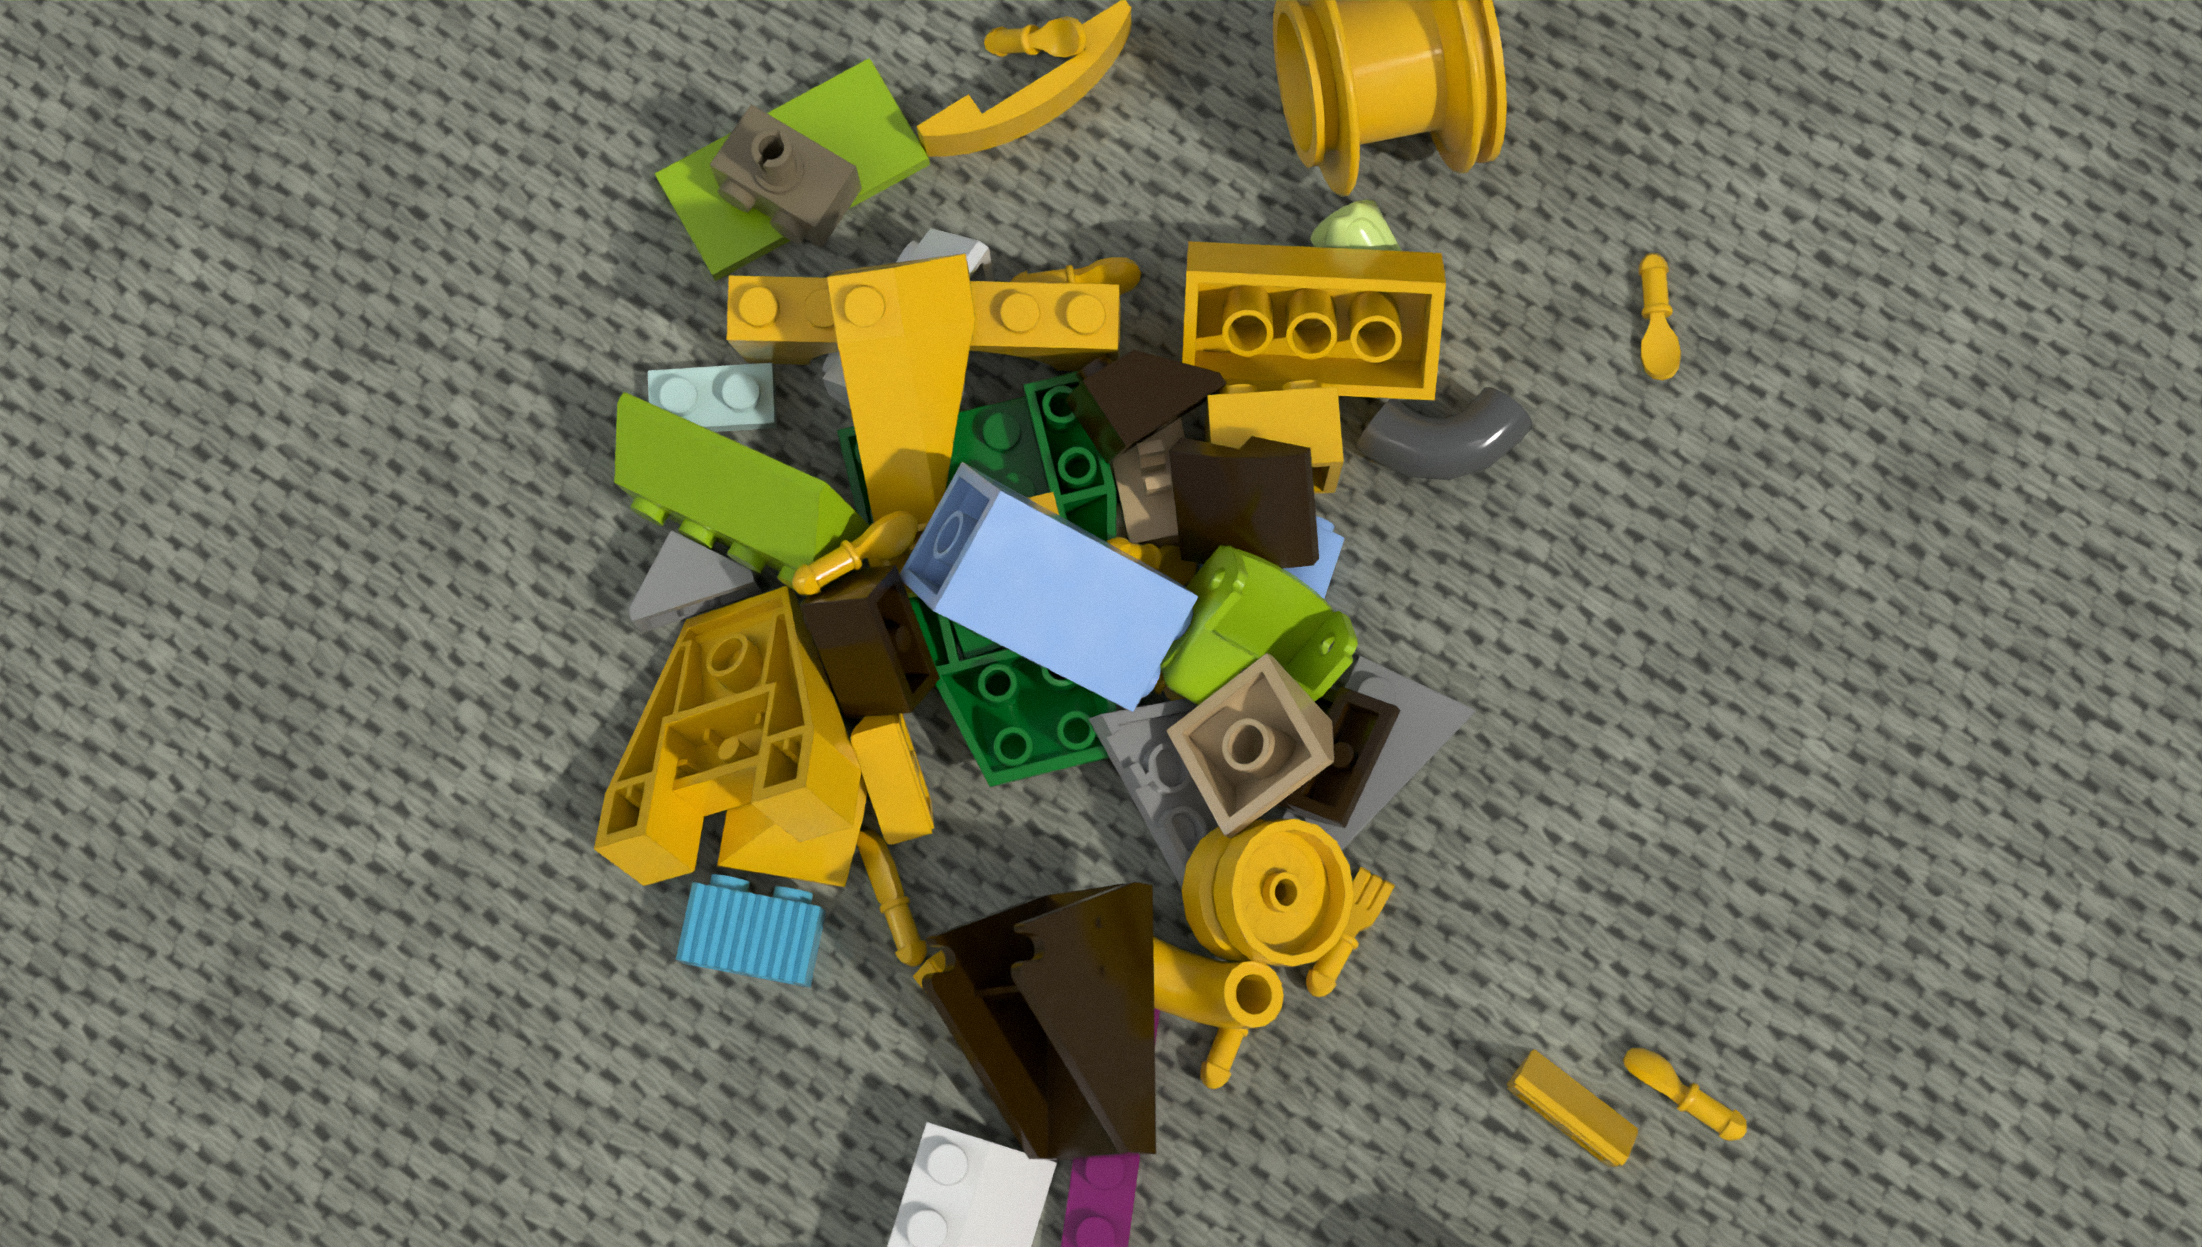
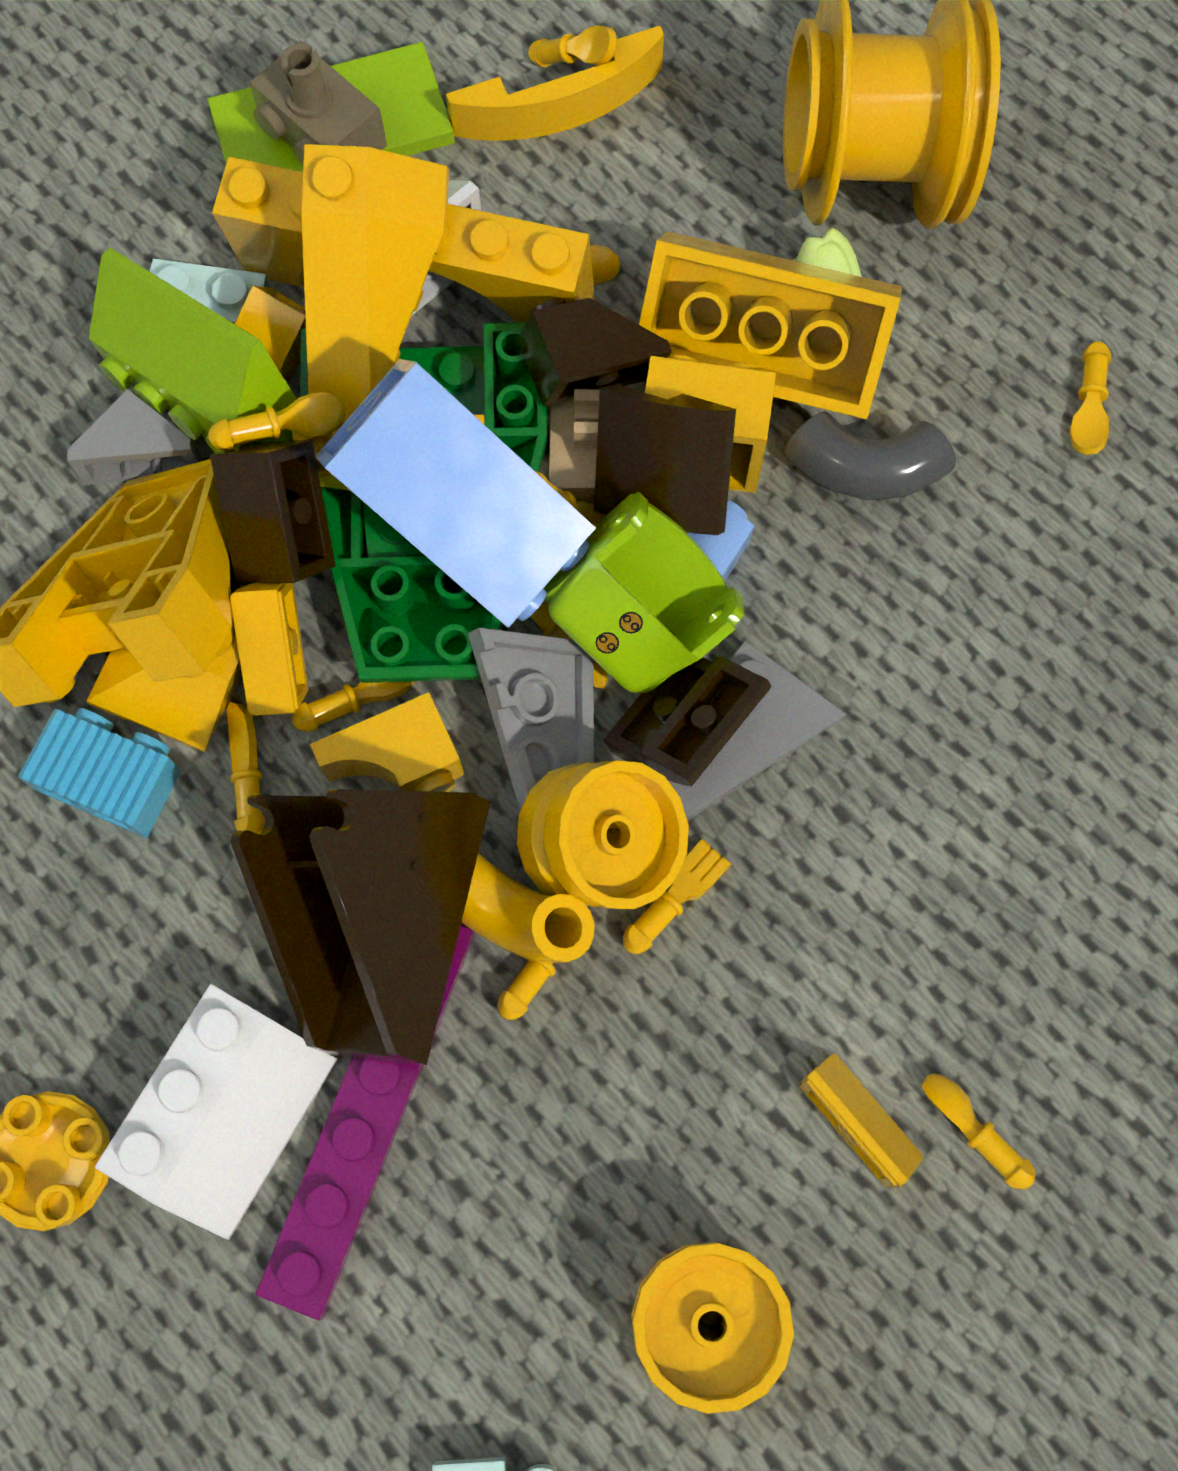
camera: 10 degrees right, 5 degrees down
(804, 429) = (276, 324): none -> yellow brick
(969, 809) = (344, 701): none -> yellow piece
(1046, 842) = (398, 745): none -> yellow arch
(1253, 743) = (619, 684): tan slope -> none

